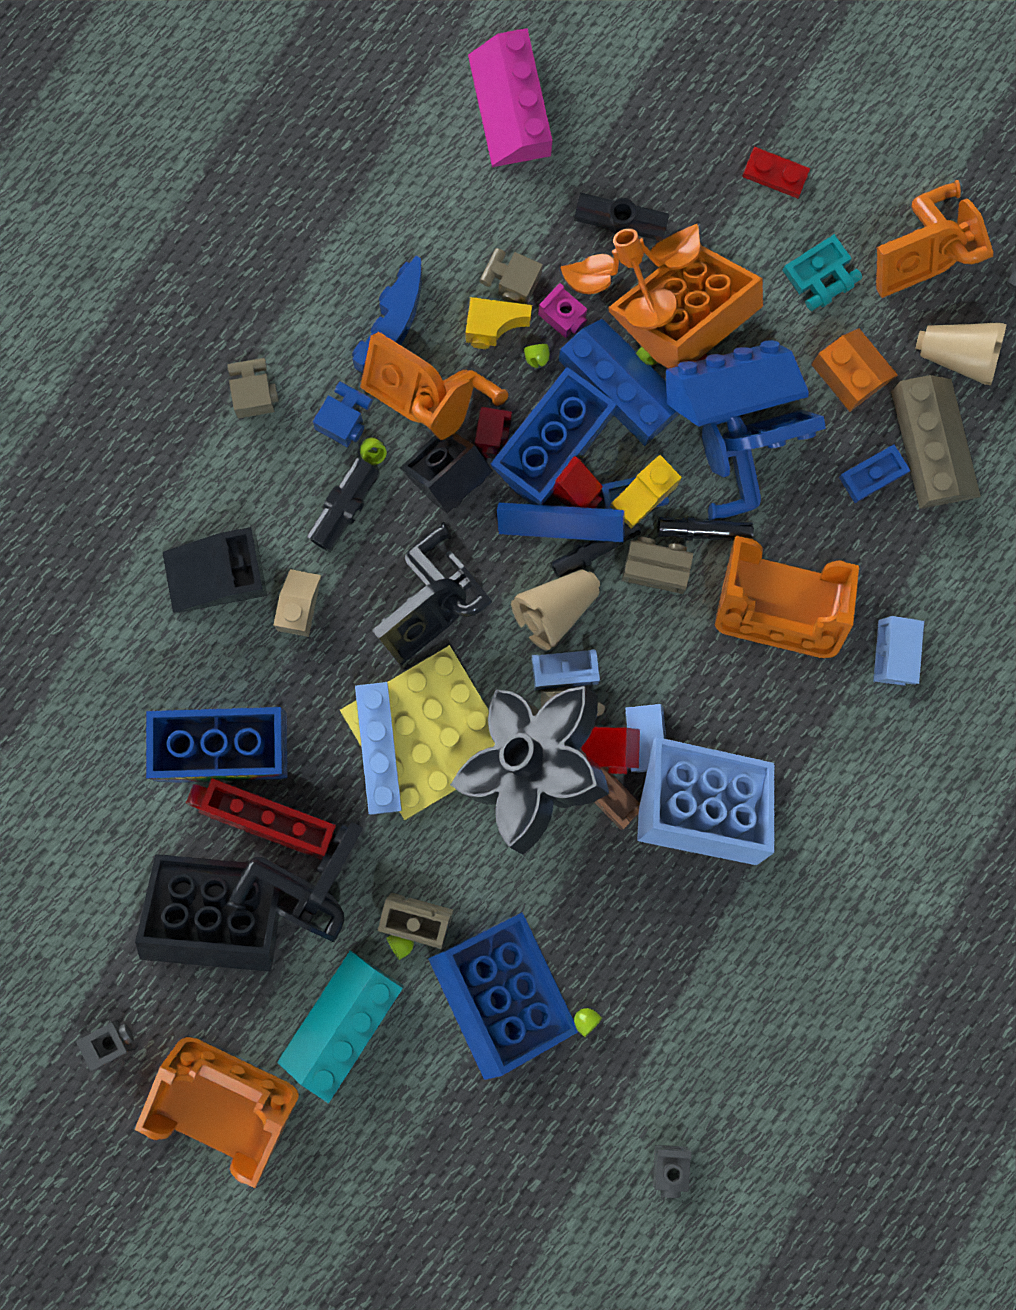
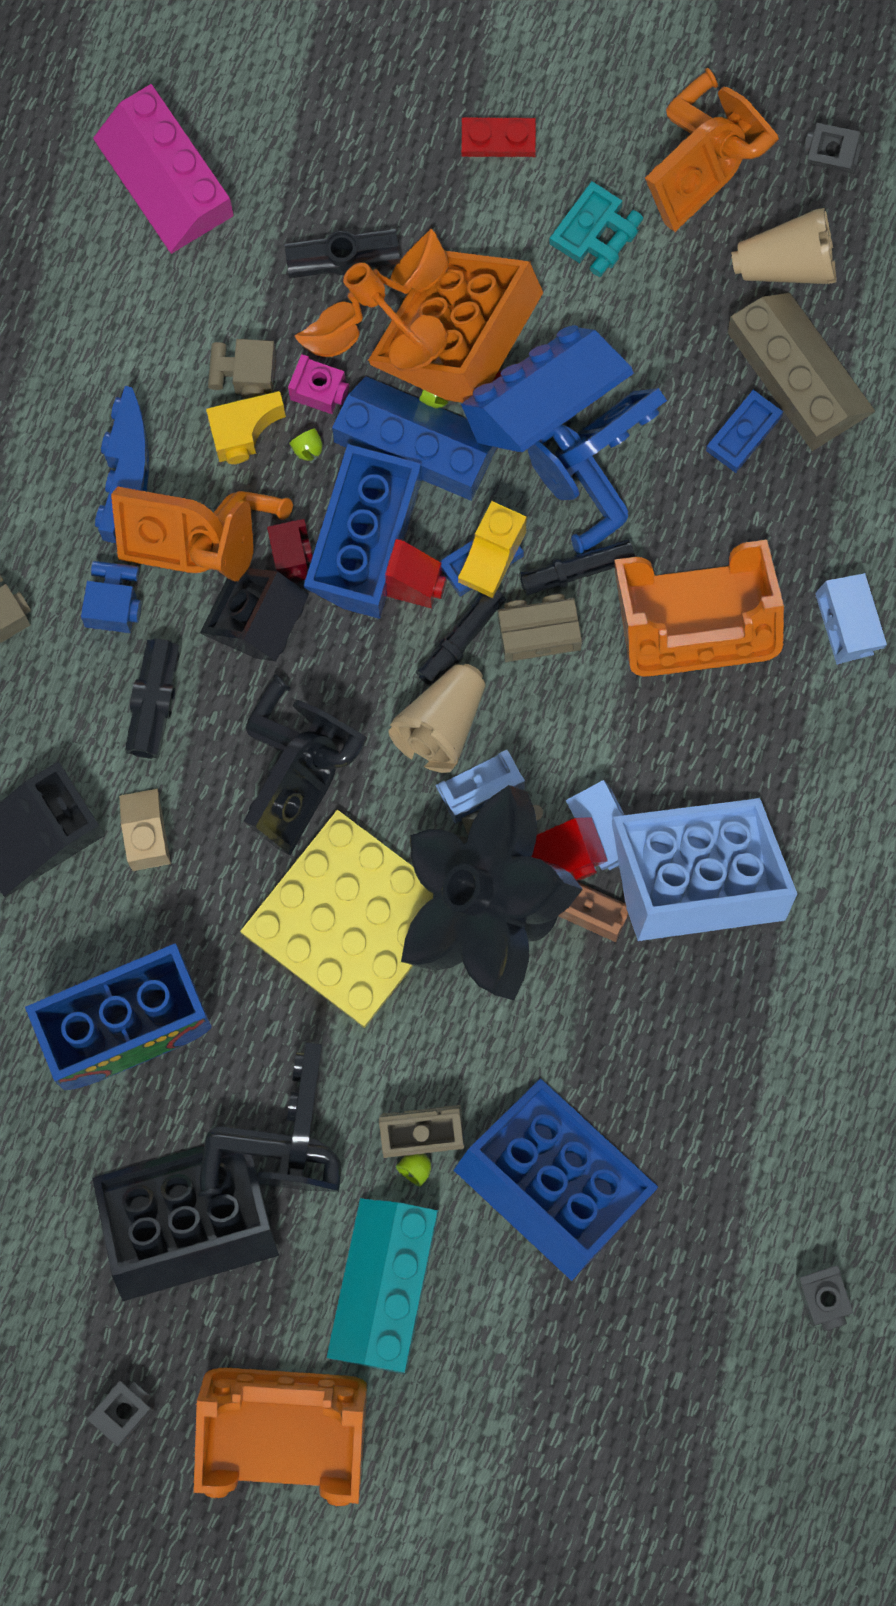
camera: 10 degrees left, 5 degrees down
(262, 817) = (200, 1083): red hinge -> none
(371, 456) = (162, 631): lime hinge -> none
(378, 748) = (302, 955): light blue plate -> none
(561, 522) = (409, 621): blue tile -> none
(586, 1020) = (662, 1170): lime hinge -> none
(853, 368) = (673, 323): orange slope -> none

